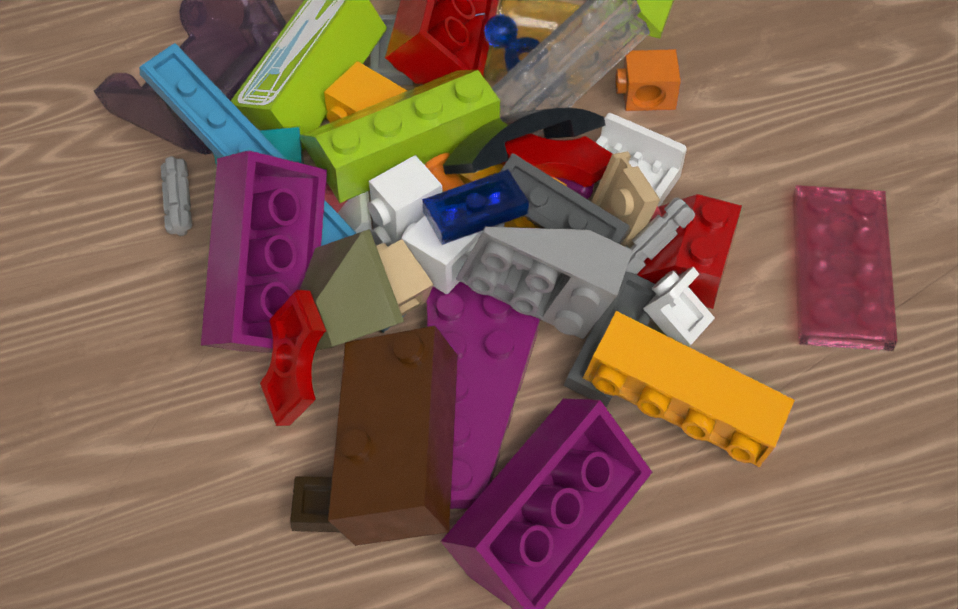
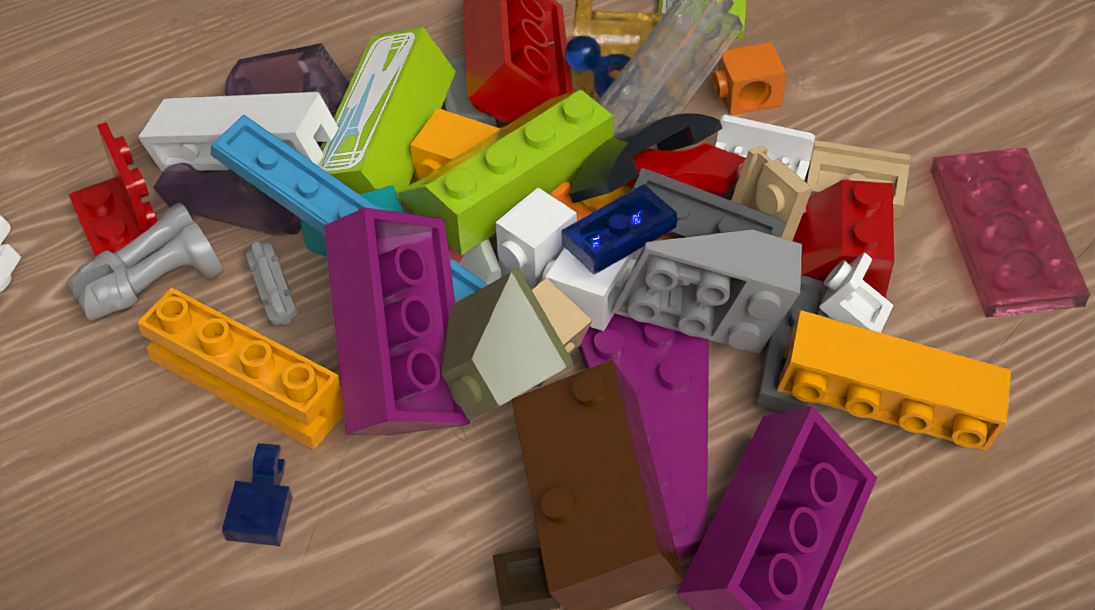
camera: 10 degrees left, 5 degrees down
(44, 168) = (118, 277): none -> light grey piece
(56, 106) = (113, 208): none -> red bracket
(116, 394) = (259, 507): none -> clear blue plate
(129, 268) = (243, 367): none -> light orange brick
(215, 50) = (188, 126): none -> white brick
(295, 334) = (456, 405): red tile -> none
(659, 233) = (817, 220): light grey axle -> none
(723, 182) = (844, 162): none -> tan plate

